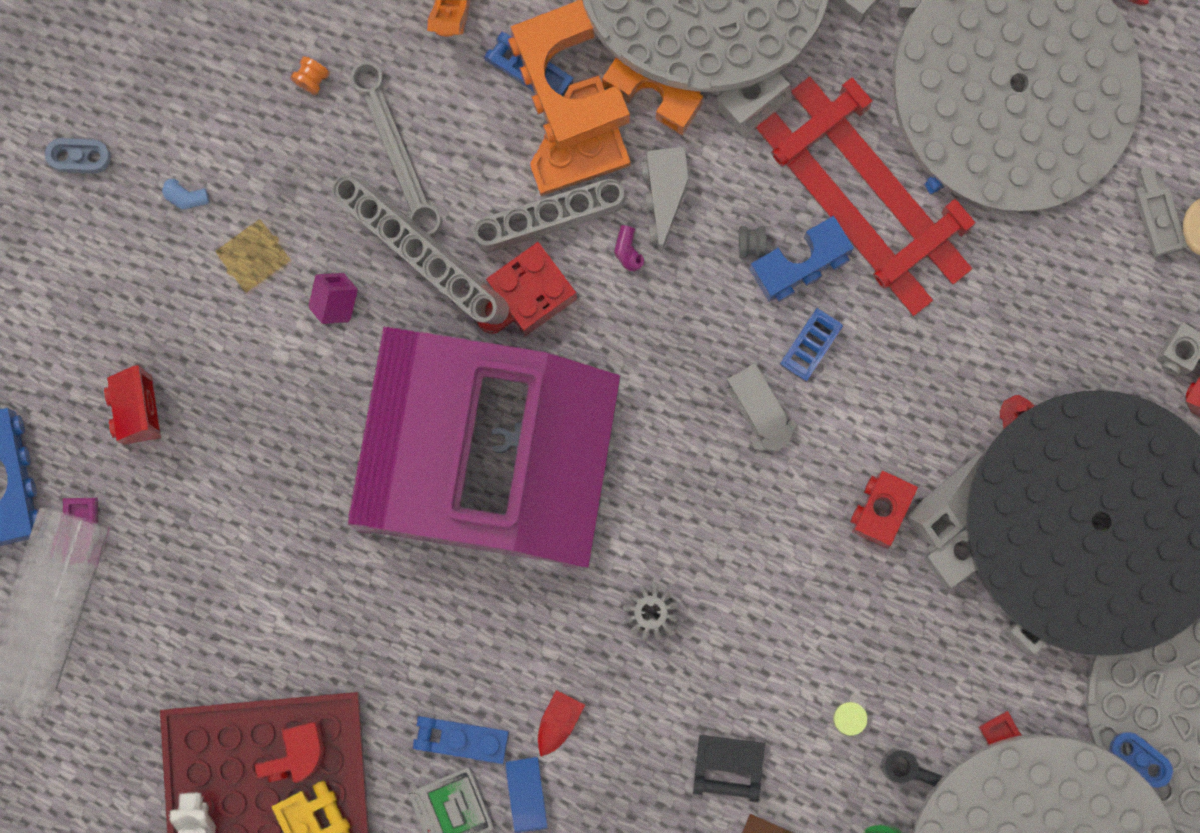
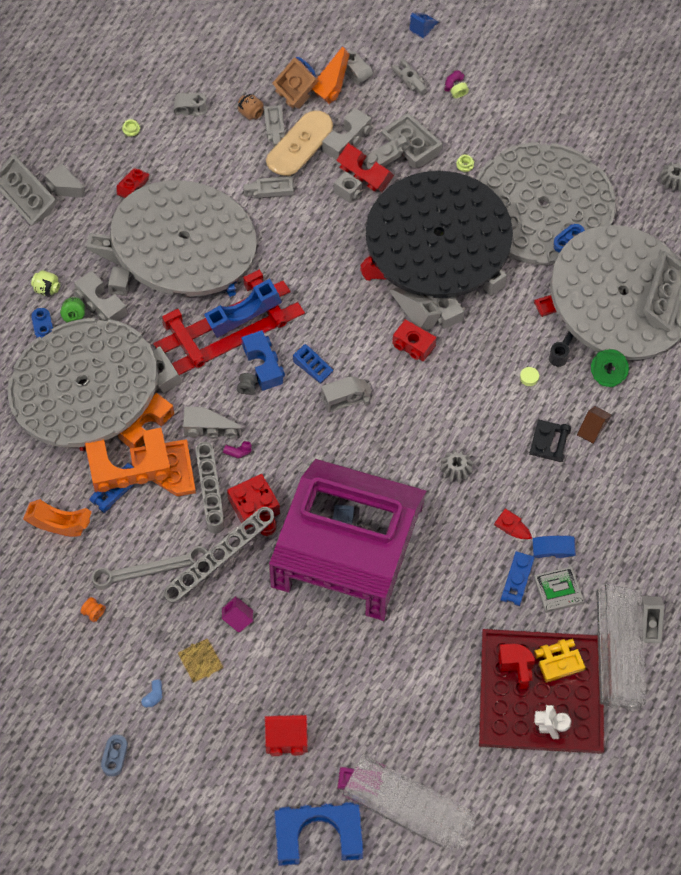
camera: 85 degrees left, 20 degrees down
(902, 229) = (261, 299): none -> blue arch

